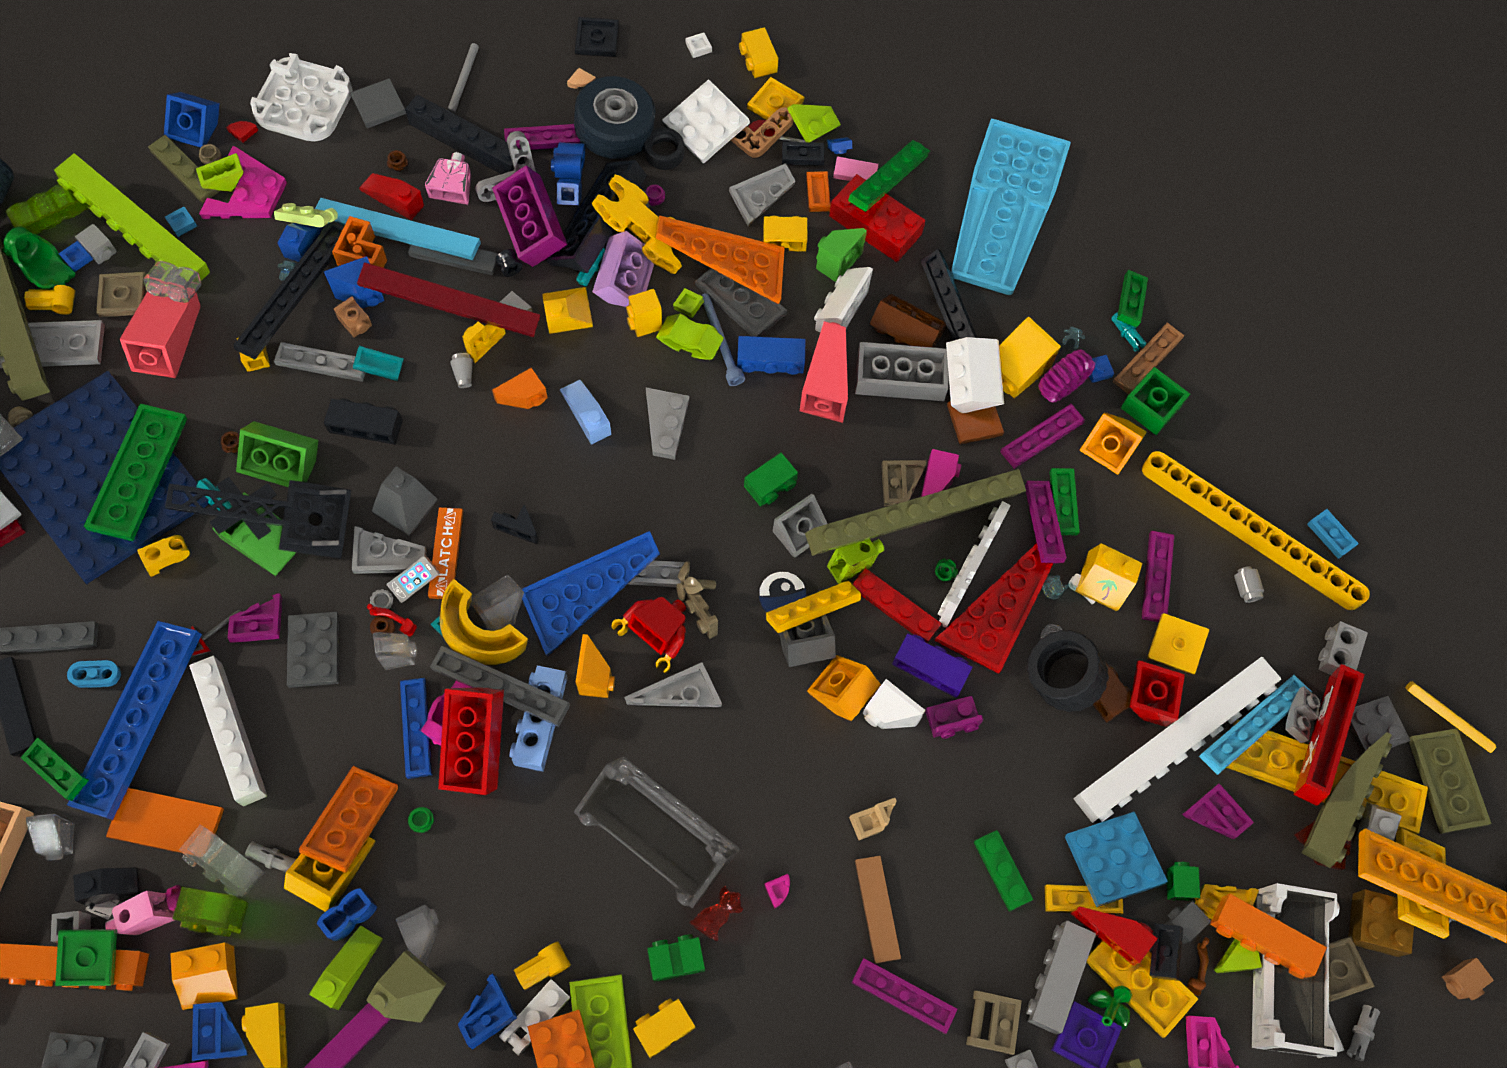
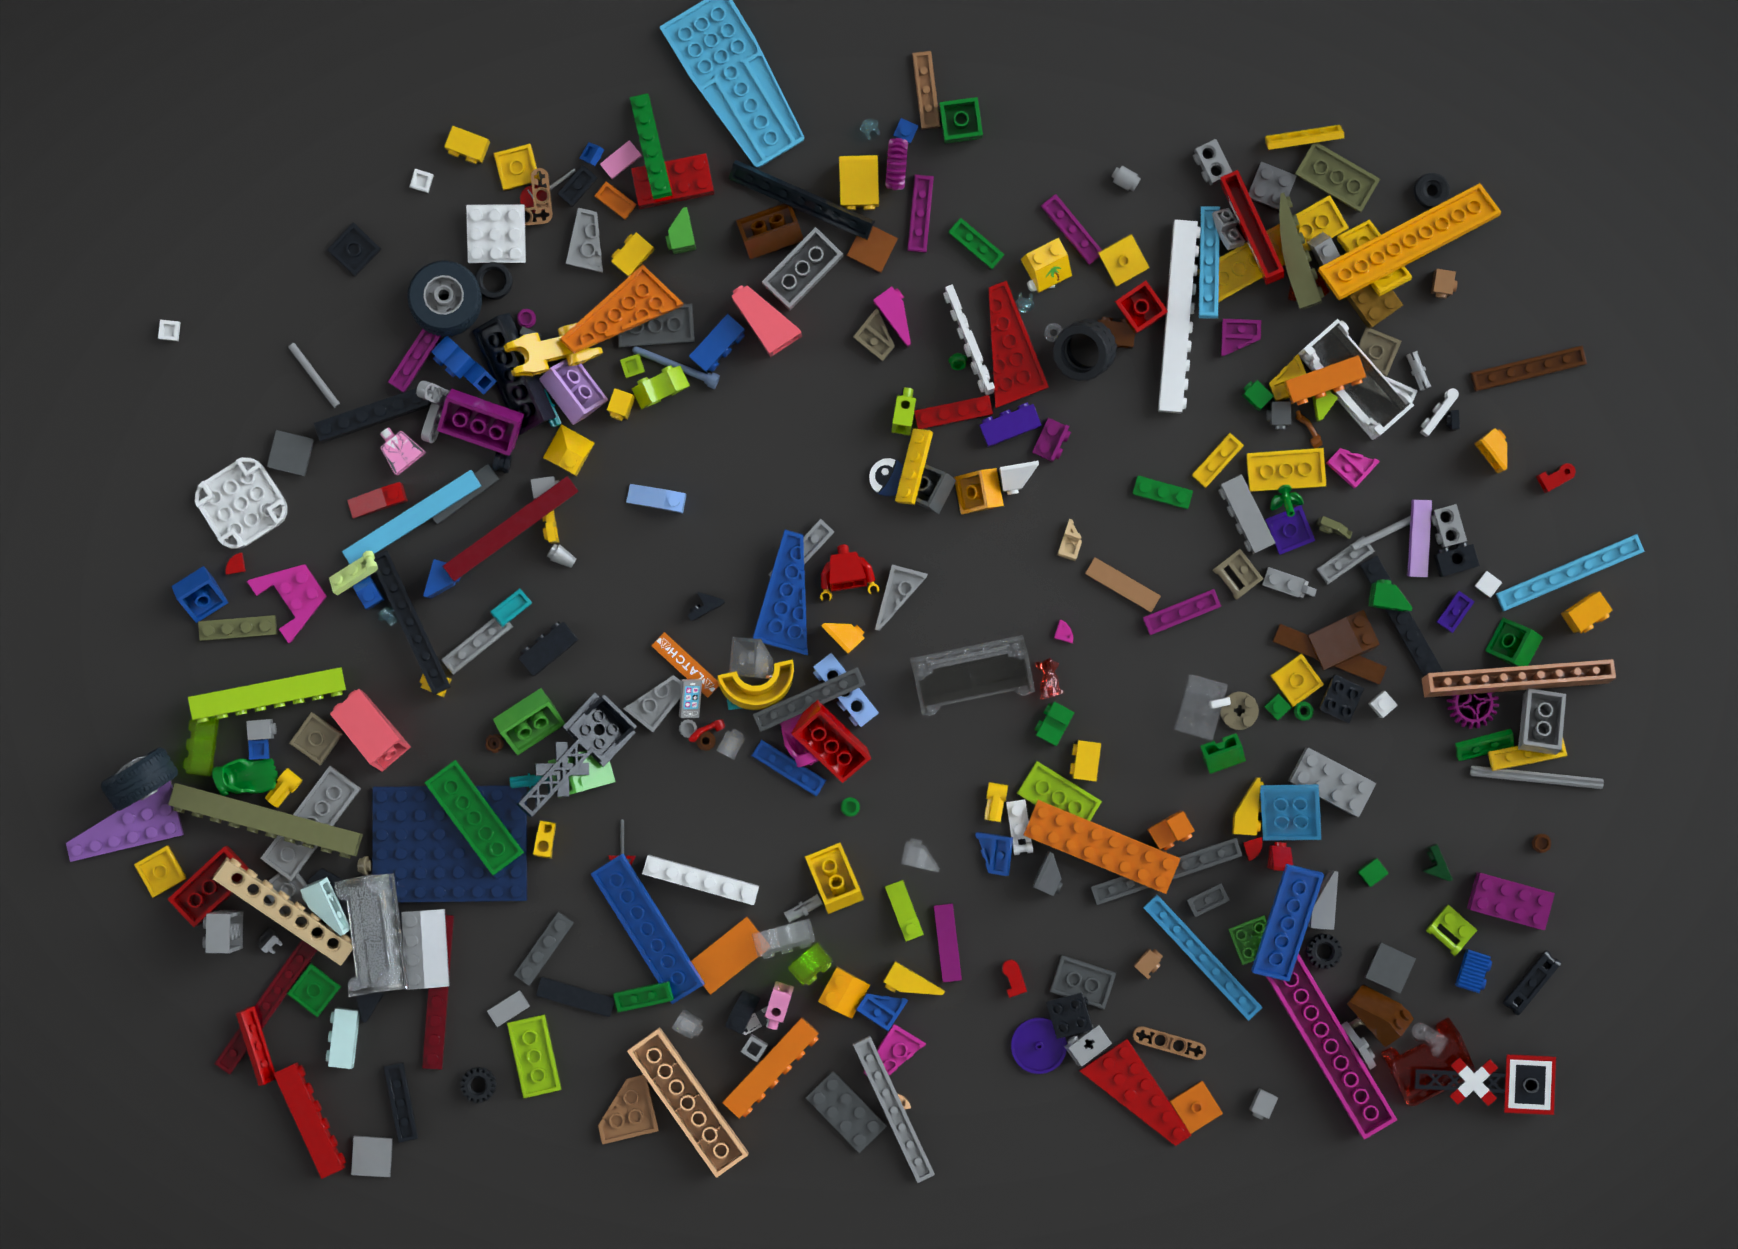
camera: 45 degrees left, 20 degrees up
(86, 957) = (783, 1048): green plate -> none
(95, 672) = (595, 934): dark azure plate -> none
(172, 282) = (345, 700): clear brick -> none
(172, 896) = (781, 979): dark pink tile -> none
(180, 221) = (285, 660): dark azure plate -> none
(209, 153) = (240, 602): dark tan plate -> none
(221, 174) = (270, 606): lime slope -> none
(257, 622) = (640, 814): magenta wing -> none
(313, 649) = (685, 793): dark grey plate -> none
(342, 919) = (875, 895): blue brick -> none
(348, 819) = (817, 847): orange tile -> none
(353, 317) = (453, 598): medium nougat brick -> none
(357, 243) = (410, 560): orange brick -> none
(397, 156) = (346, 475): reddish brown plate -> none
(403, 501) = (629, 665): dark grey slope -> none
(406, 990) = (947, 886): olive slope -> none
(521, 391) = (610, 528): orange slope -> none
(580, 79) = (384, 291): light nougat tile -> none
(666, 420) = (706, 451): light grey wing -> none
(690, 583) = (838, 530): dark tan plant -> none
(706, 623) = (852, 537): dark tan wing -> none
(771, 479) = (806, 419): green brick -> none
(795, 522) = (855, 427): light grey slope -> none
(813, 120) = (560, 157): lime wing -> none
(846, 298) = (718, 262): white slope -> none
(914, 512) = (910, 352): olive brick -> none
(974, 374) = (847, 227): white slope -> none
(1045, 522) = (980, 270): magenta plate -> none
(1113, 441) = (964, 173): light orange slope -> none
(1115, 859) = (1212, 421): dark azure plate -> none
(1123, 935) = (1255, 460): red slope -> none
(1130, 333) = (896, 85): teal axle -> none
(1132, 298) = (877, 62): green plate -> none
(1166, 952) = (1284, 443): black plate -> none
(1265, 531) = (1102, 134): yellow beam -> none
(1332, 533) = (1139, 91): dark azure plate -> none

